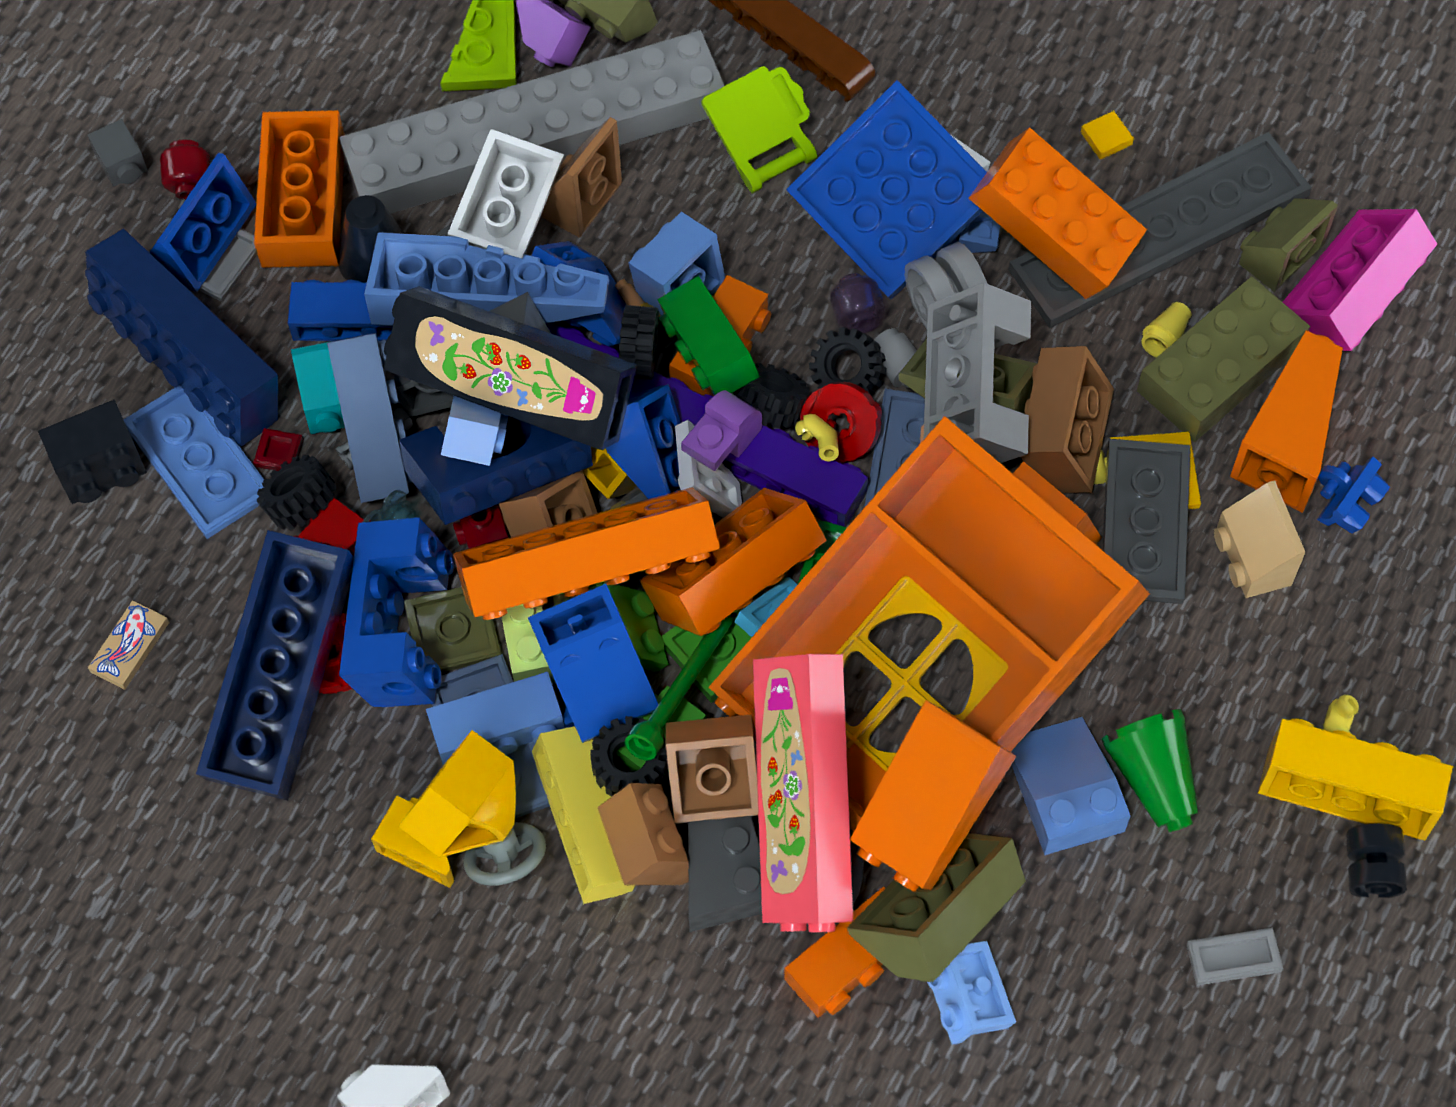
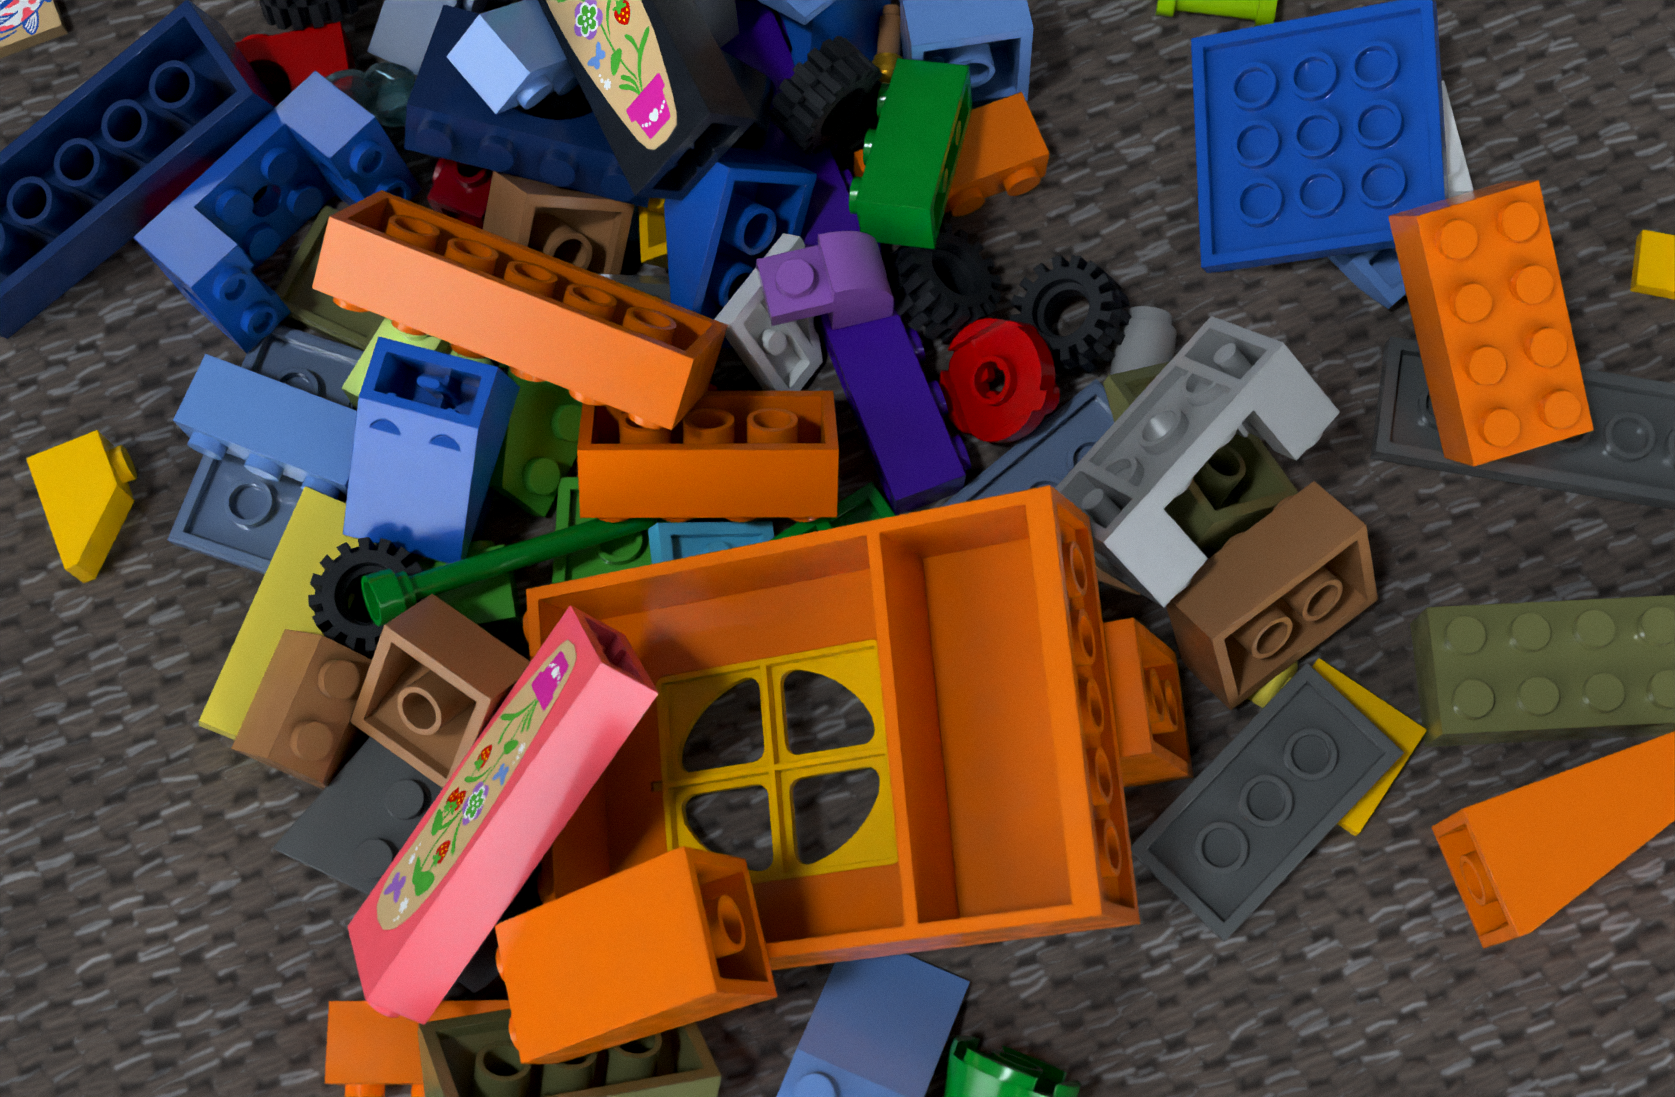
camera: 40 degrees right, 10 degrees up
(473, 811) = (145, 512): yellow piece -> none
(826, 436) = (960, 383): light yellow arm -> none
(857, 303) = (1155, 247): clear purple head -> none
(936, 279) = (1286, 315): light grey wheel -> none
(1166, 329) = (1516, 575): light yellow cone -> none
(1260, 542) = (1381, 949): tan slope -> none
(1360, 482) = (1564, 967): blue hips -> none

